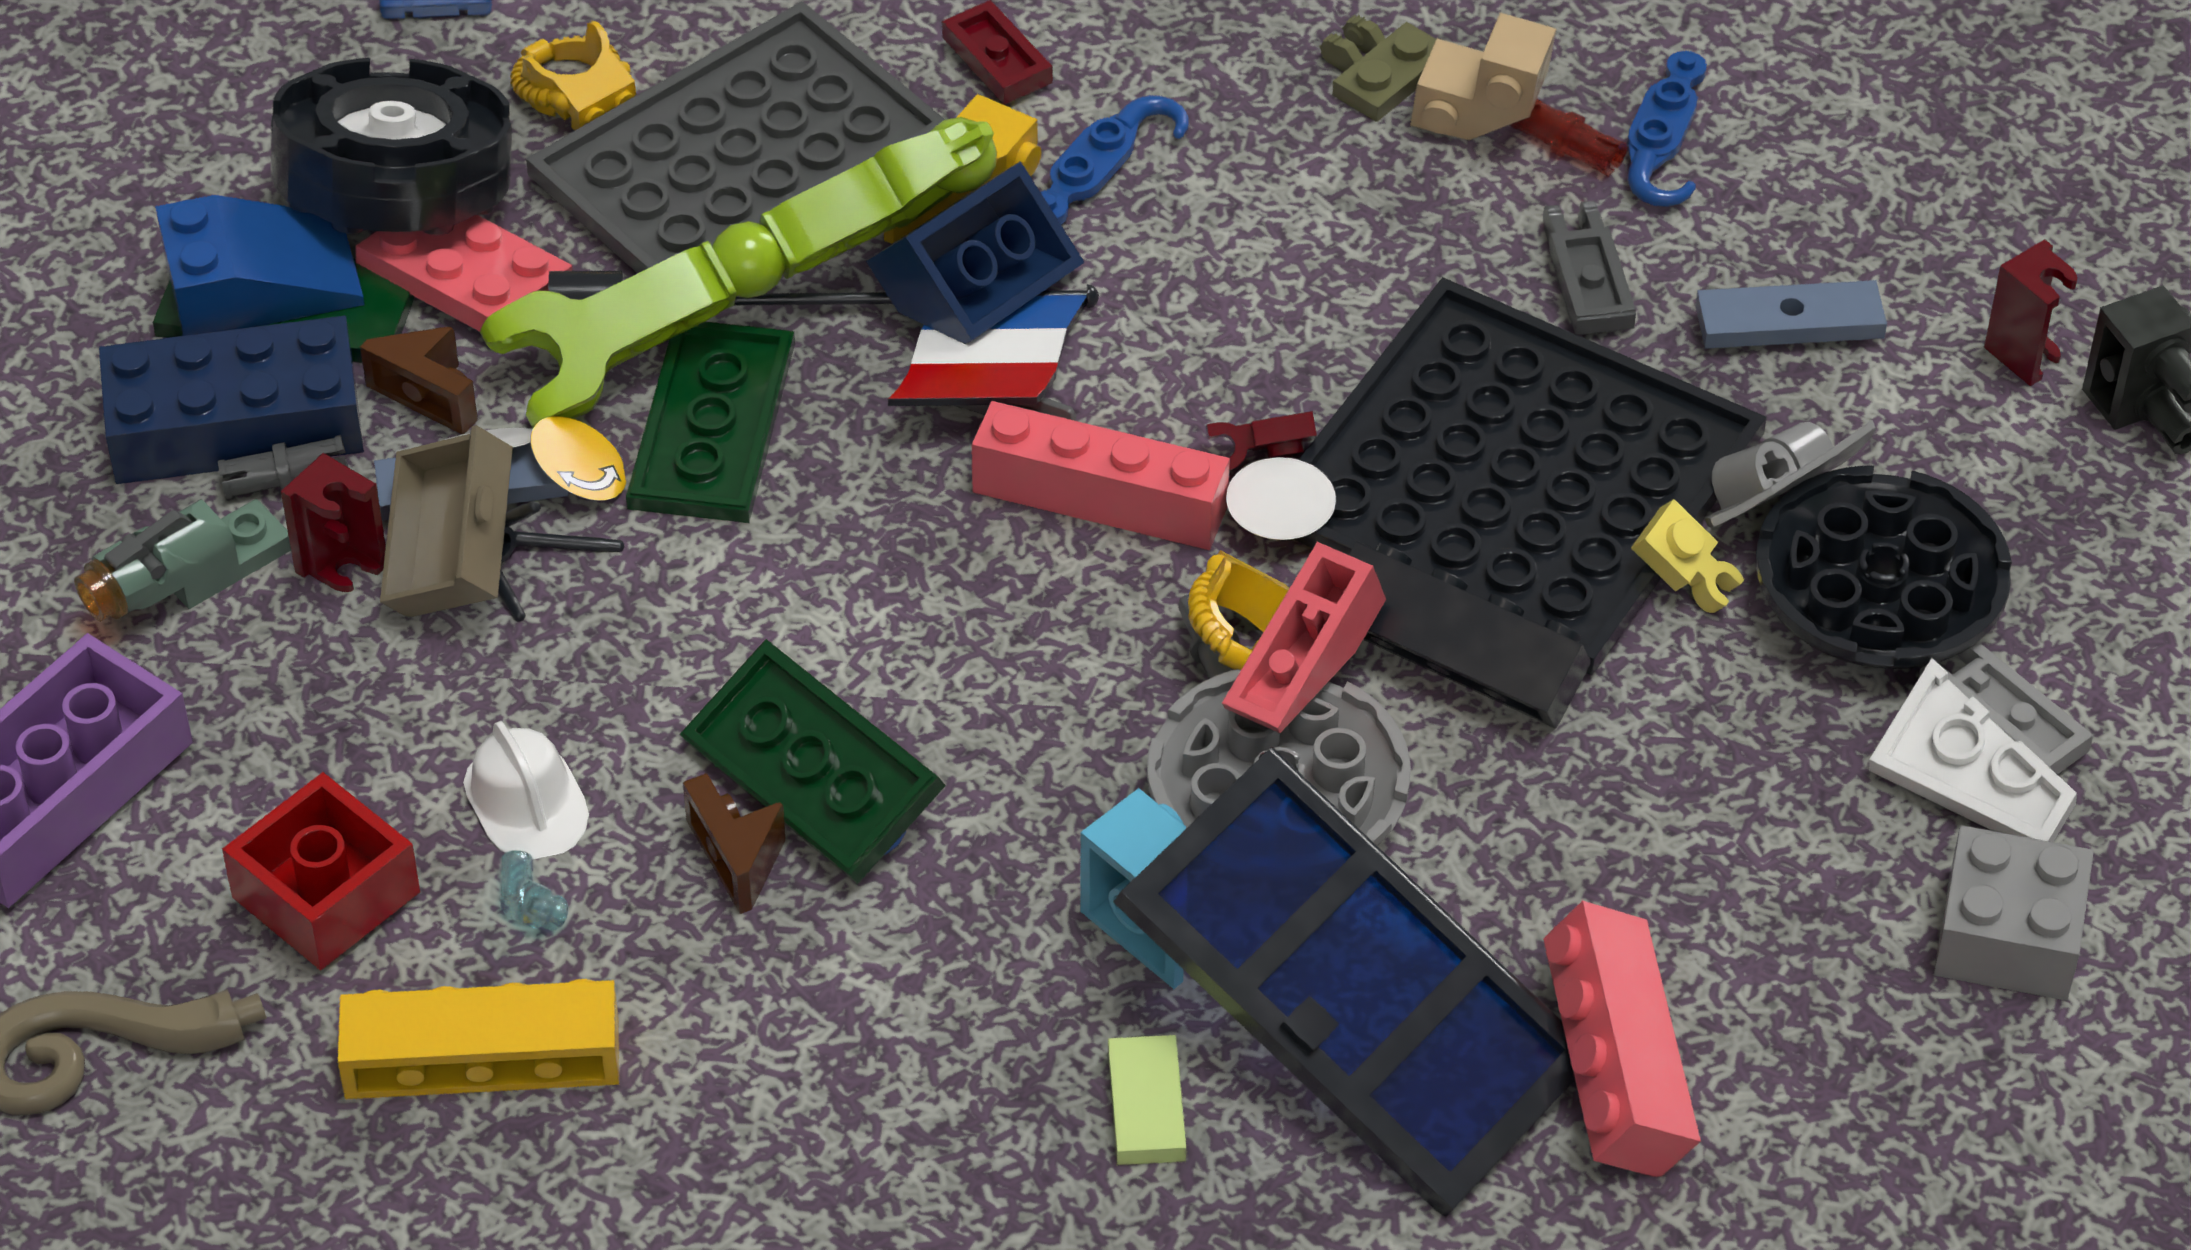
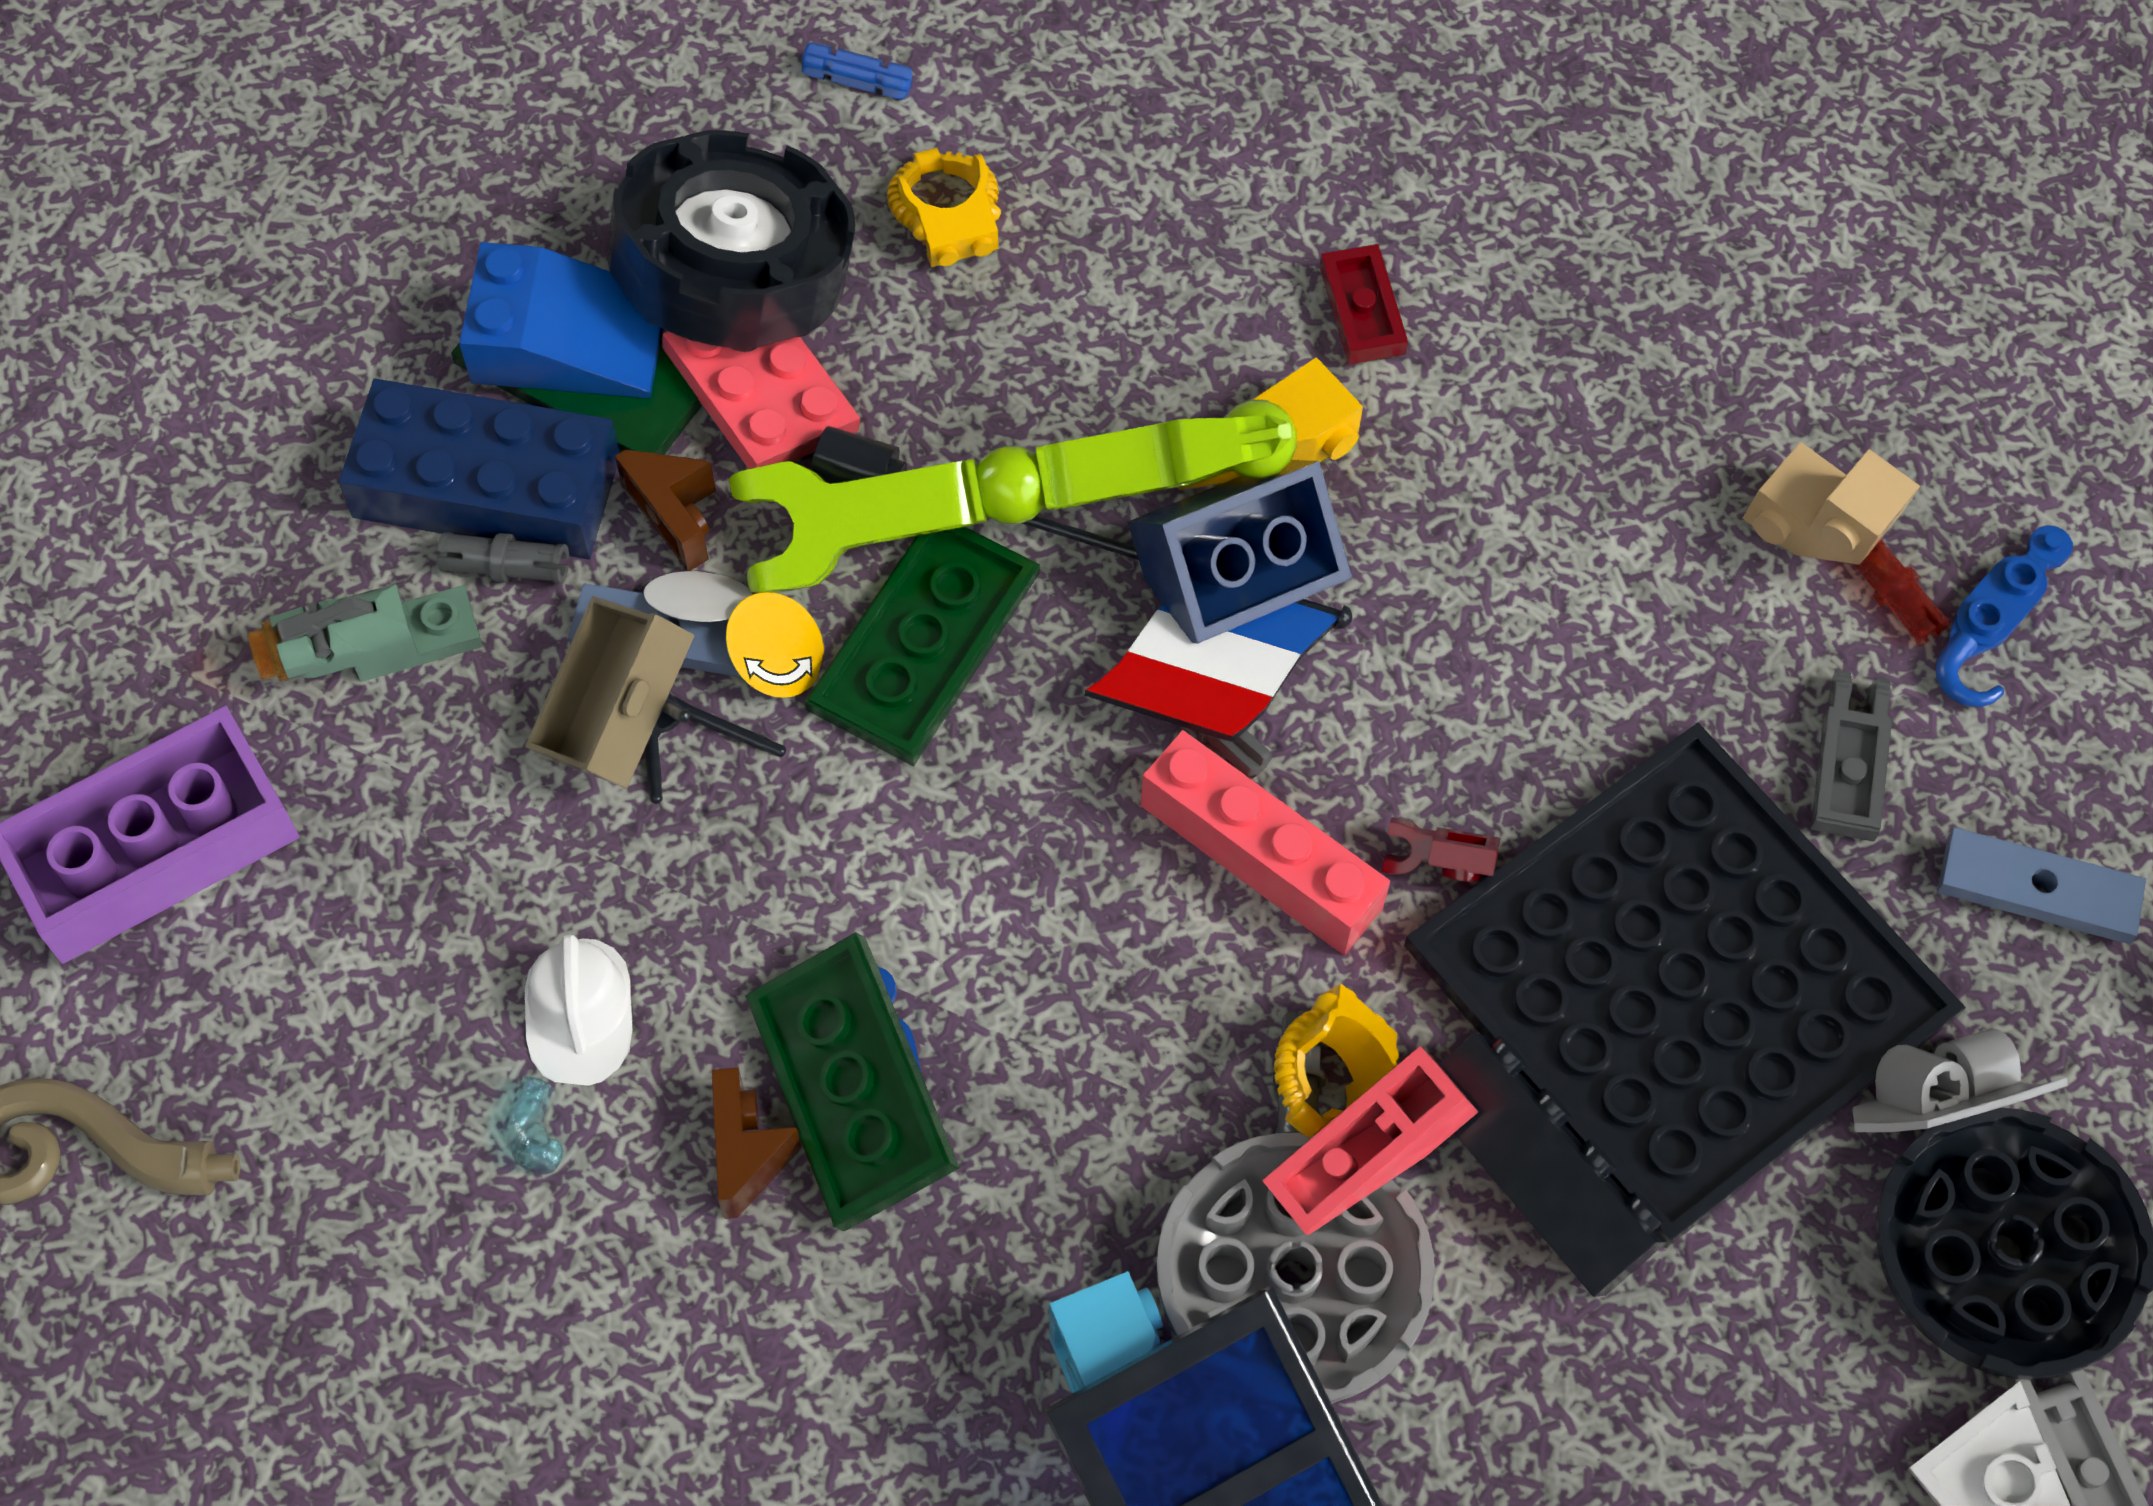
camera: 20 degrees right, 15 degrees up
(321, 870) = (341, 1042): red brick -> none
(333, 522) = (504, 648): dark red hinge -> none
(478, 1039) = (415, 1283): yellow brick -> none
(729, 138) = (1072, 332): dark grey plate -> none
(1103, 150) = (1417, 455): blue piece -> none
(1280, 498) = (1430, 933): white sticker -> none
(1387, 71) = (1741, 451): olive hinge -> none
(1681, 556) = (1809, 1148): light yellow plate -> none

